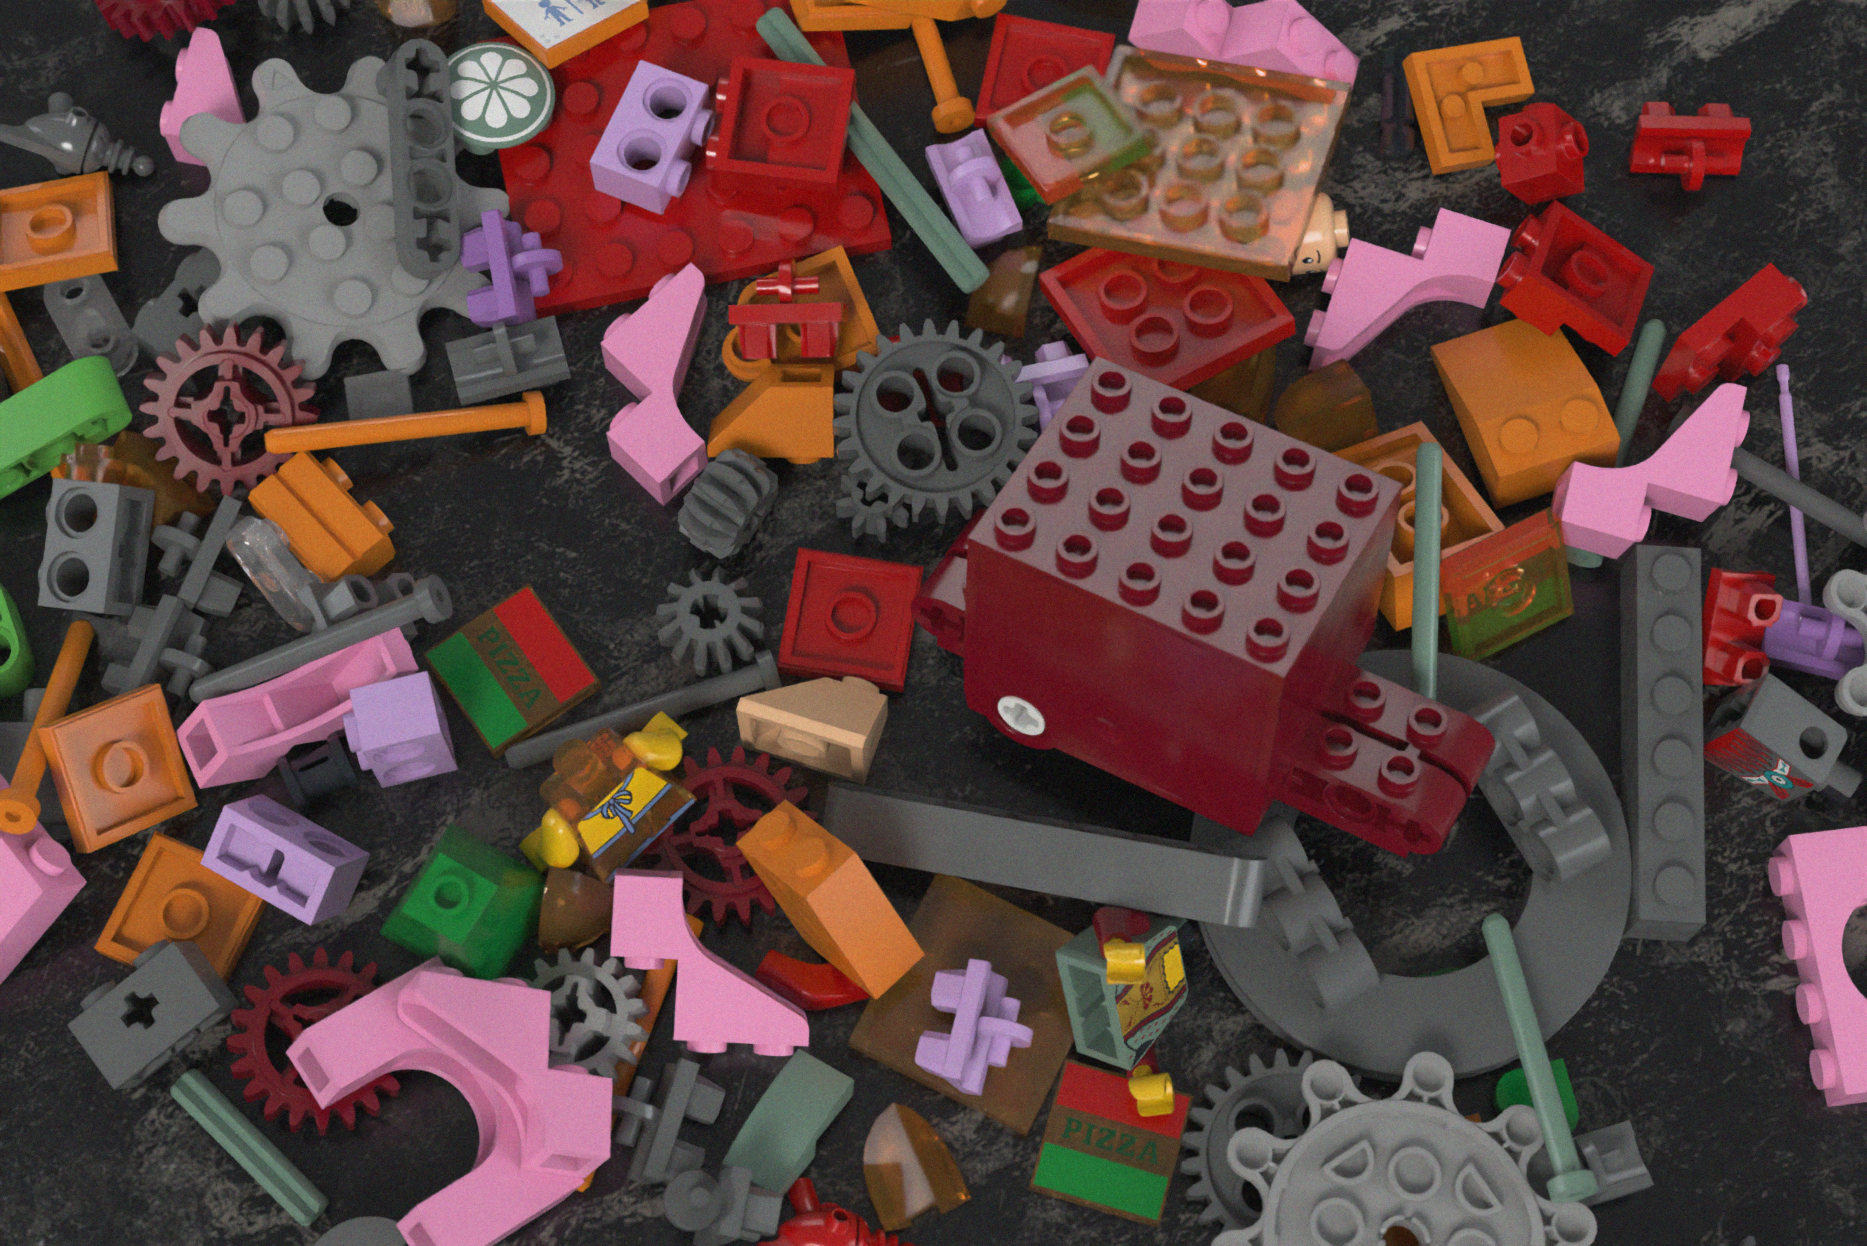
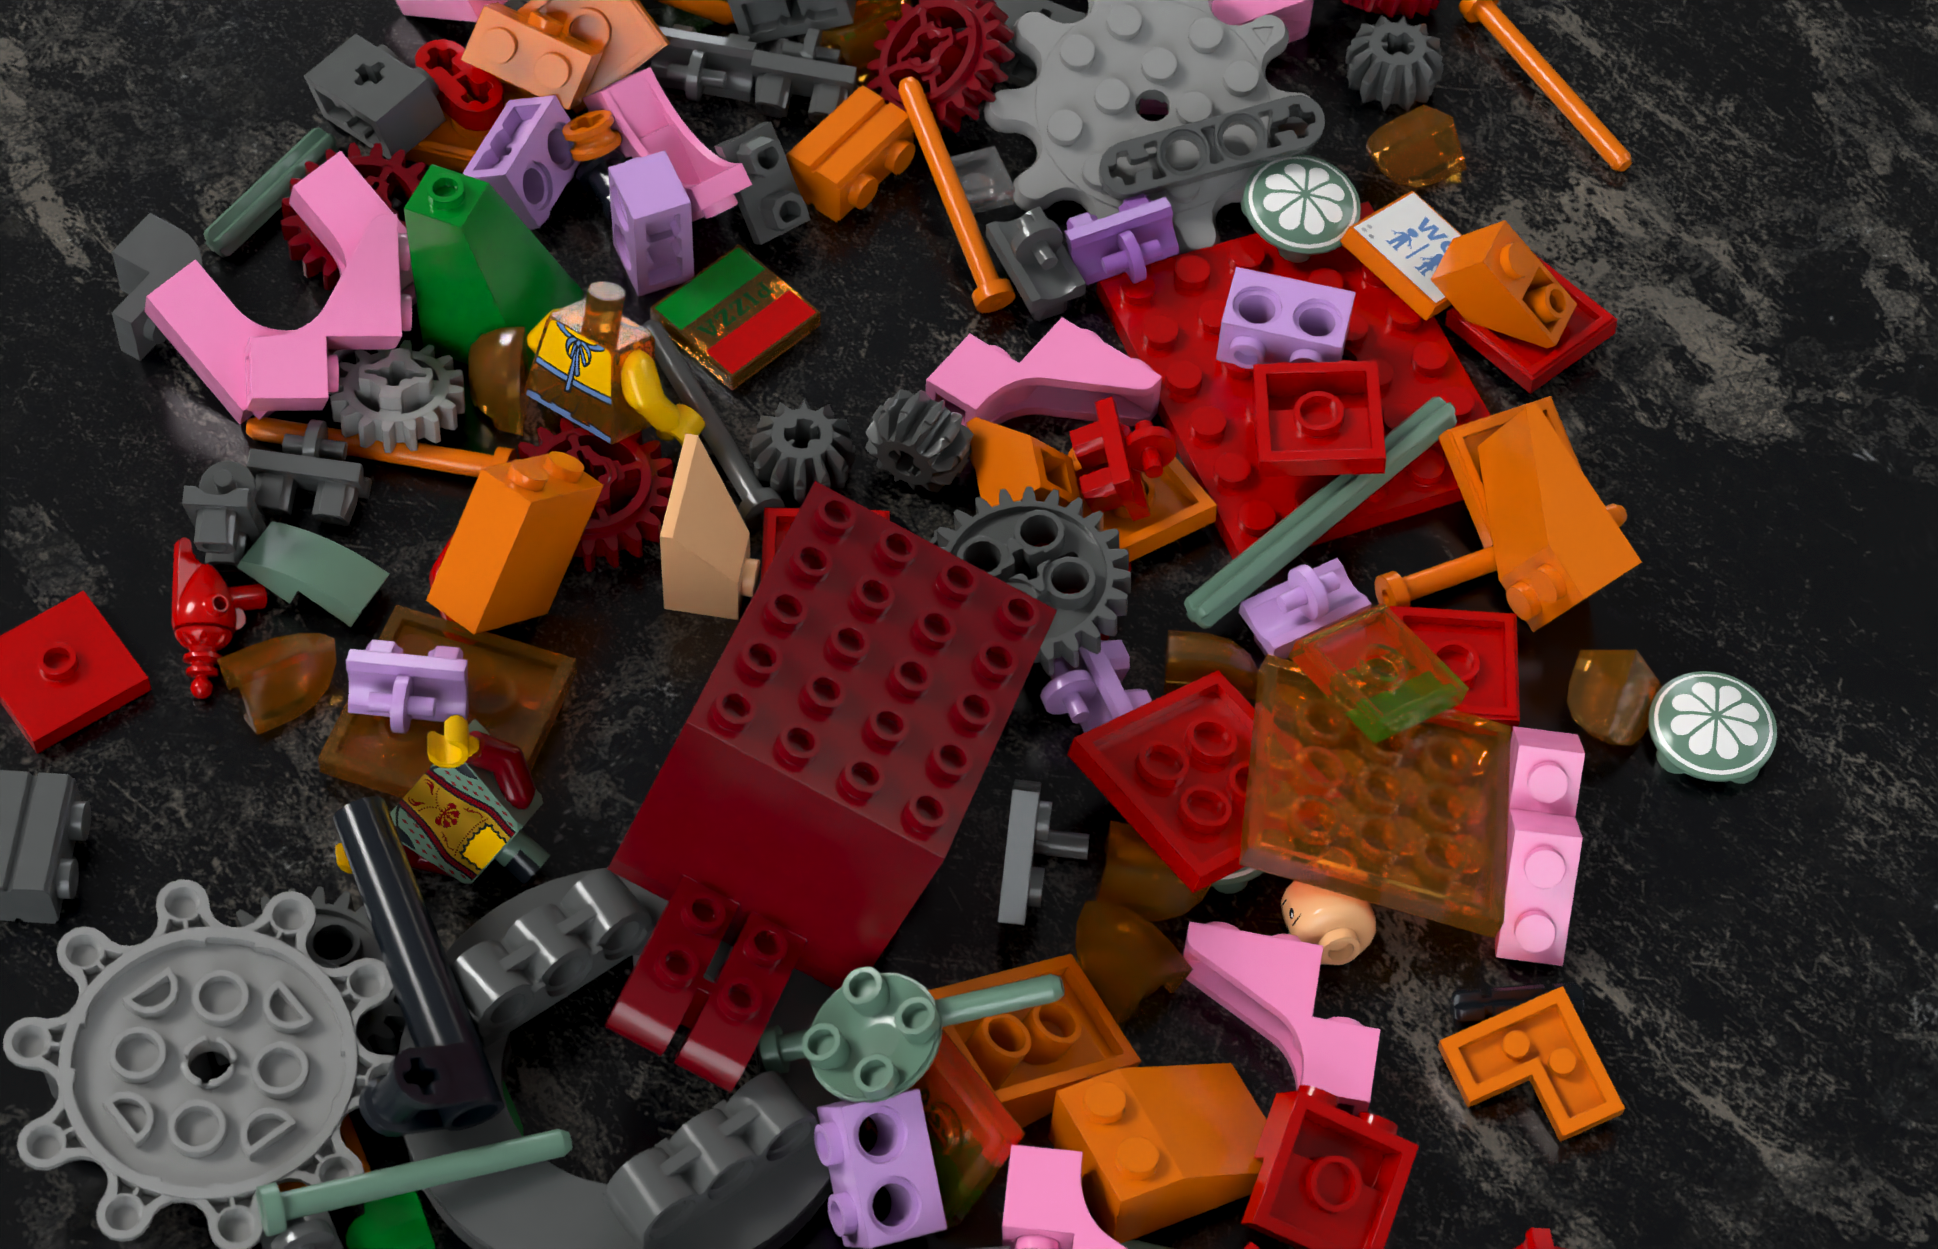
camera: 80 degrees right, 15 degrees down
(140, 908) = (465, 80): none -> red beam
(153, 827) = (532, 53): none -> orange brick
(258, 768) = (591, 135): none -> orange bush
(265, 557) = (806, 102): clear plate -> none
(428, 601) = (749, 182): dark grey bar -> none
(712, 996) = (429, 483): bright pink arch -> none
(1048, 854) = (583, 723): dark grey beam -> none
(1103, 1150) = (297, 838): tile -> none
(1439, 1011) = (446, 1074): none -> black axle
(1457, 616) = (873, 1036): none -> sand green dish
(1541, 153) = (1481, 1137): red brick -> none
(1545, 644) = (898, 1161): none -> lavender brick

